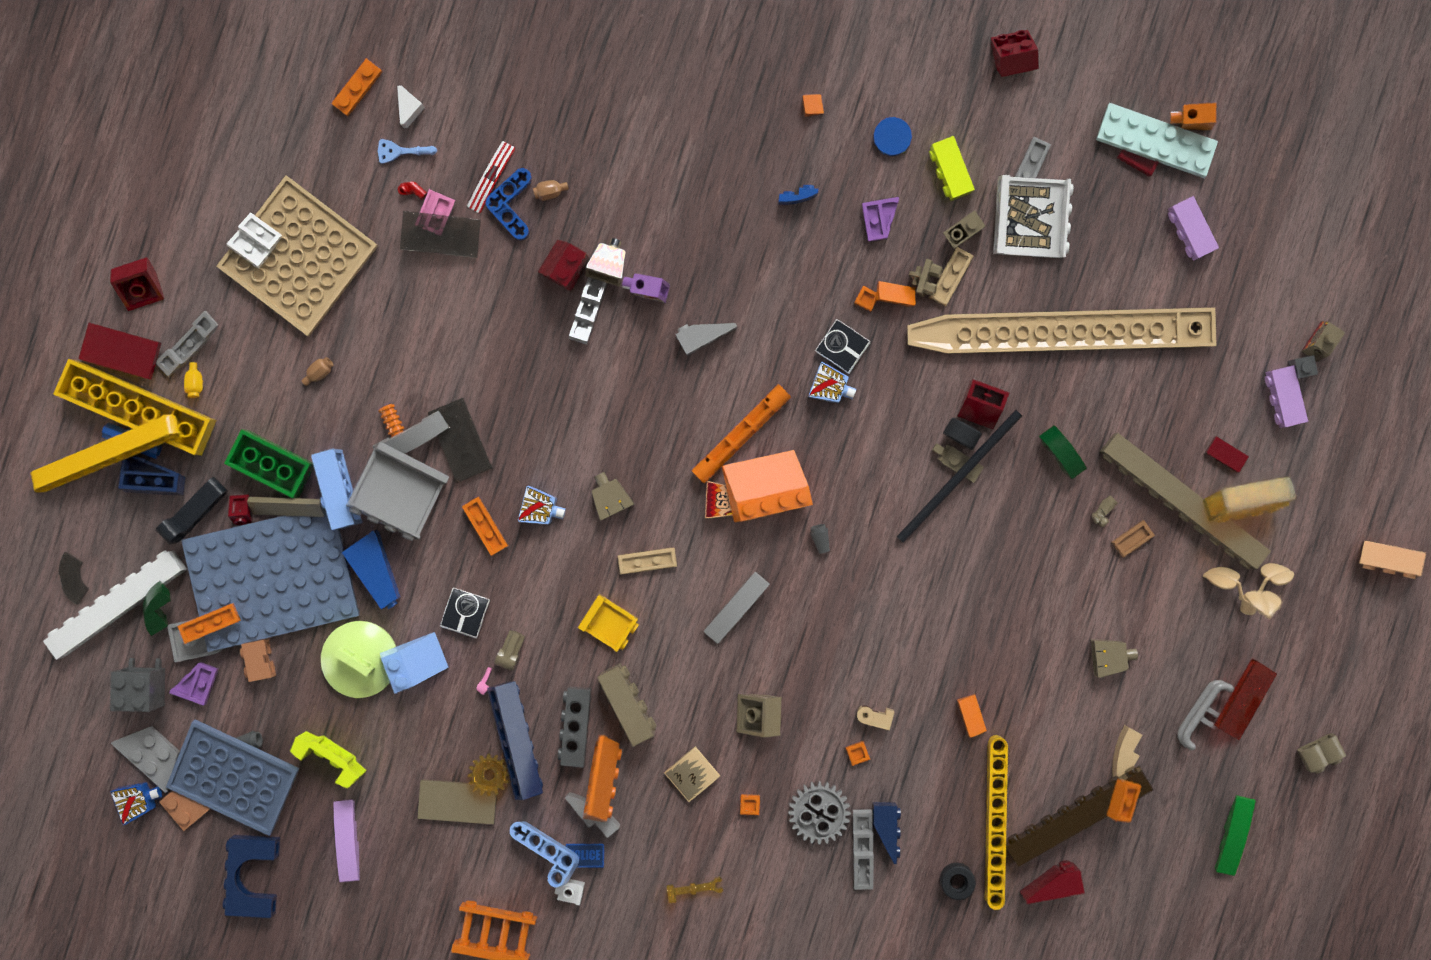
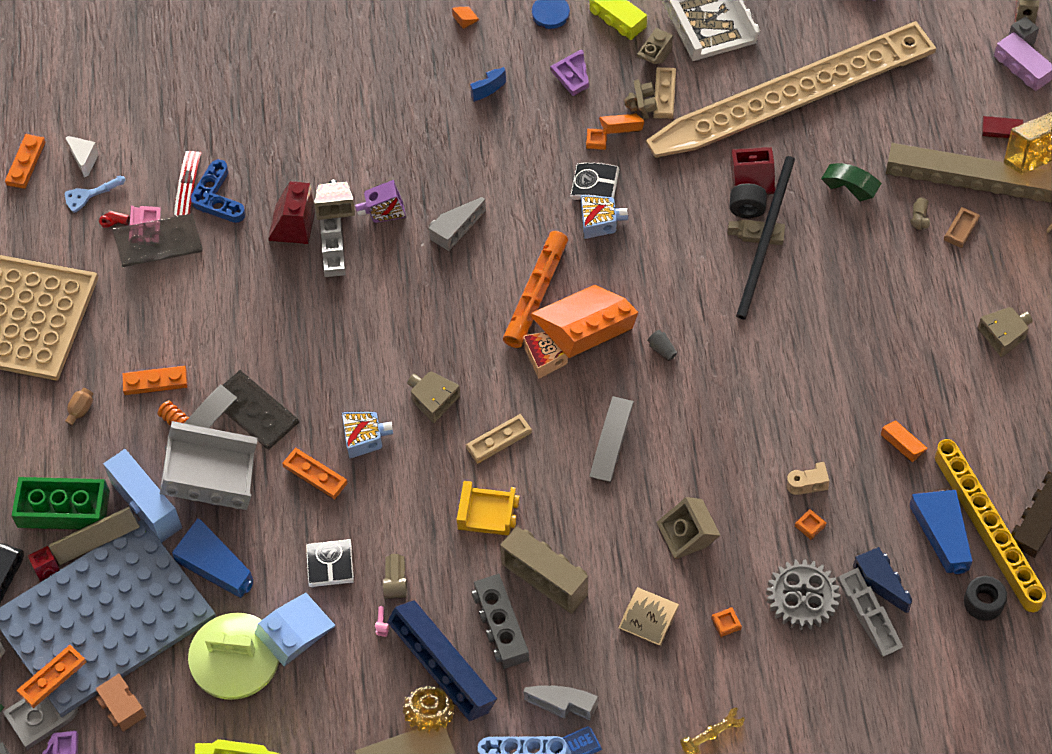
camera: 15 degrees left, 30 degrees down
(389, 373) = (155, 380): none -> orange plate
(549, 189) = (249, 167): medium nougat plant -> none
(601, 780) = (553, 648): orange slope -> none
(960, 807) = (944, 527): none -> blue slope

